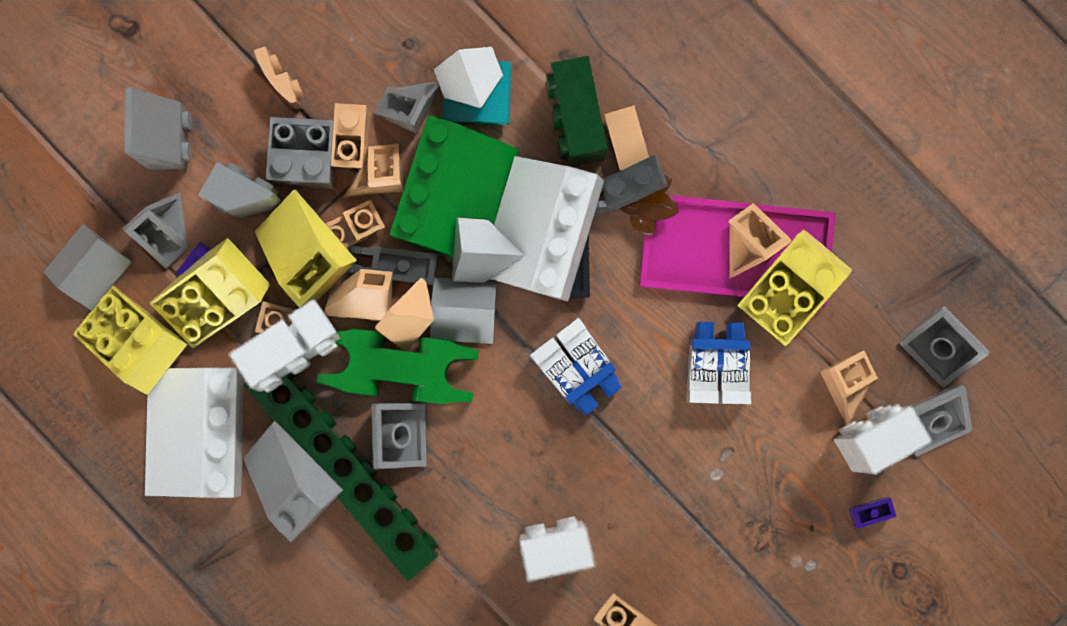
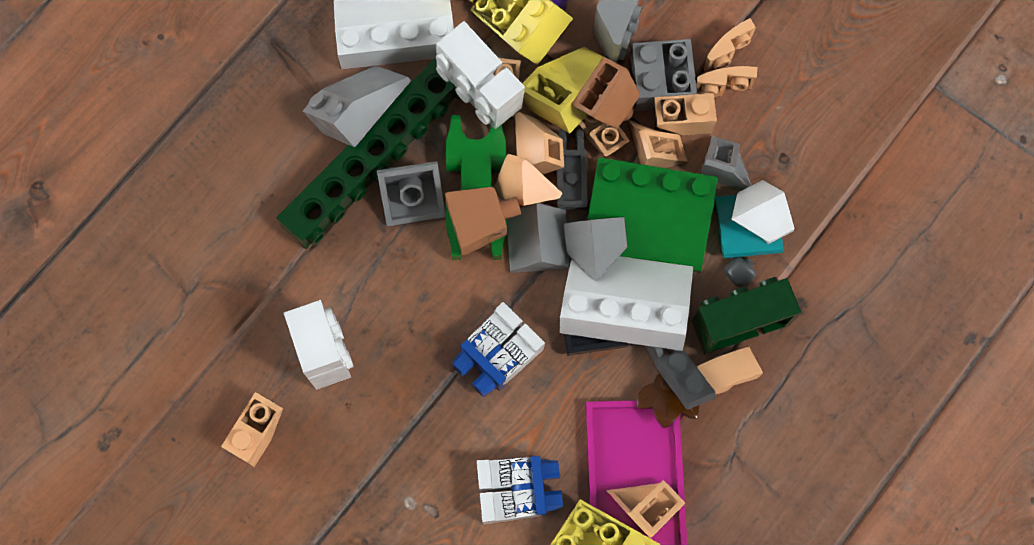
camera: 85 degrees right, 10 degrees down
(318, 97) = (736, 77): none -> light nougat slope
(325, 214) = (608, 94): none -> nougat torso
(439, 366) = (479, 216): none -> nougat torso
(524, 109) = (740, 271): none -> dark grey piece

